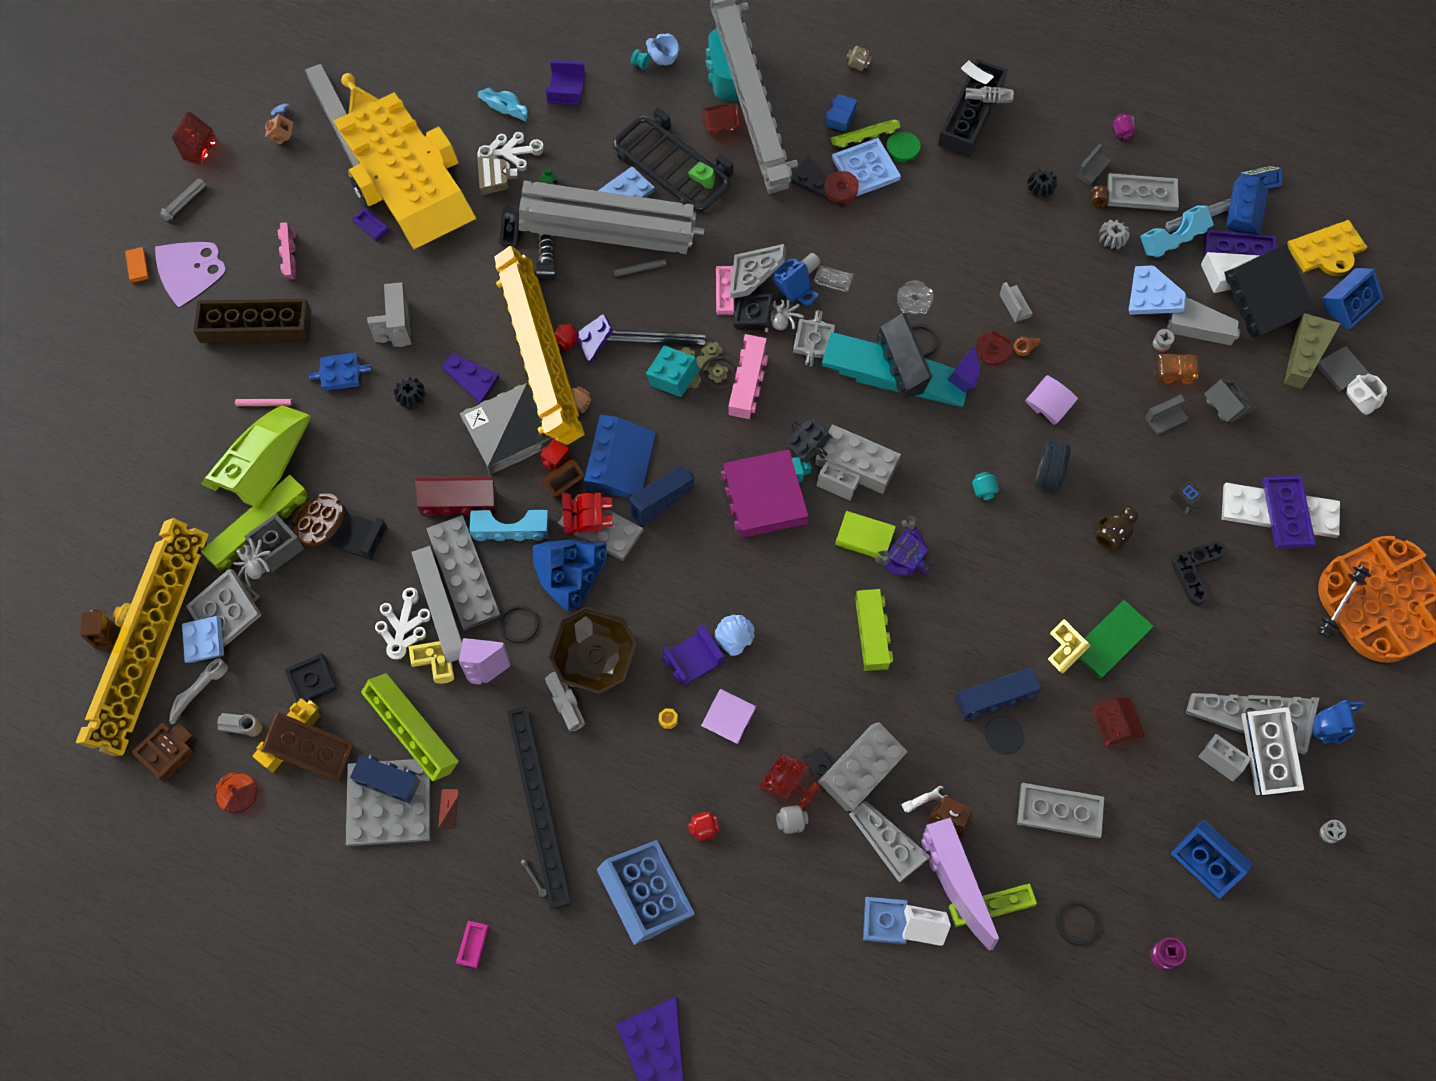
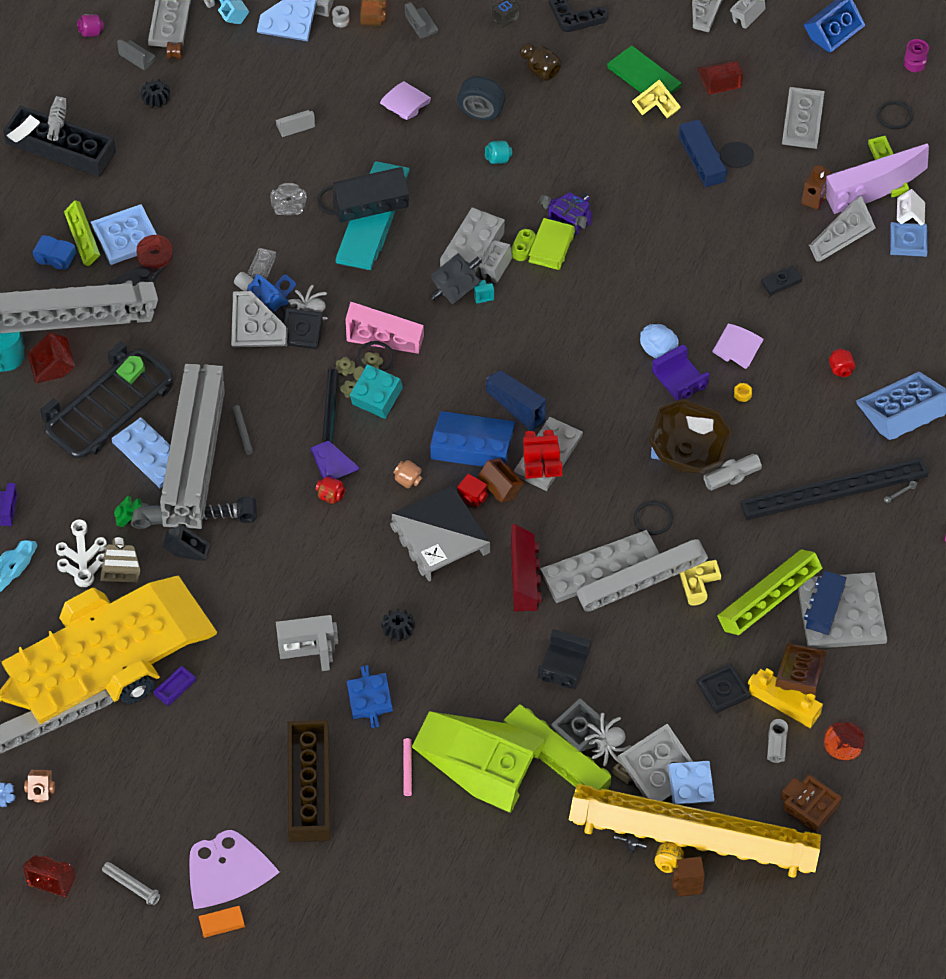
camera: 90 degrees left, 10 degrees down
(214, 671) = (752, 794): light grey piece -> none
(286, 236) = (209, 756): bright pink wing -> none
(318, 519) = (551, 690): reddish brown tile -> none
(403, 625) = (662, 613): white plant -> none
(448, 808) = (842, 564): clear red sticker -> none
(471, 376) = (376, 573): dark purple wing -> none
(483, 660) = (707, 524): lavender slope -> none
(533, 526) = (550, 507): medium azure arch -> none
(538, 347) = (357, 497): yellow brick -> none
(569, 569) = (597, 472): blue brick -> none
(724, 302) = (273, 355): bright pink tile -> none
(764, 494) = (510, 318): magenta brick -> none
(785, 777) = (794, 301): clear red plate -> none
(792, 819) = (830, 298): light grey head -> none
(812, 338) = (335, 279): light grey plate -> none
(862, 766) = (779, 245): light grey brick -> none
(865, 508) = (523, 243): none -> lime plate
(872, 630) = (647, 239): lime brick -> none
(903, 146) = (99, 204): green tile -> none
(912, 804) = (807, 216): white arm -> none
(967, 372) = (376, 158): dark purple slope -> none
(990, 356) = (345, 150): clear red tile -> none
(1024, 345) = (345, 117): dark orange animal -> none
(1114, 234) = (220, 42): light grey gear -> none

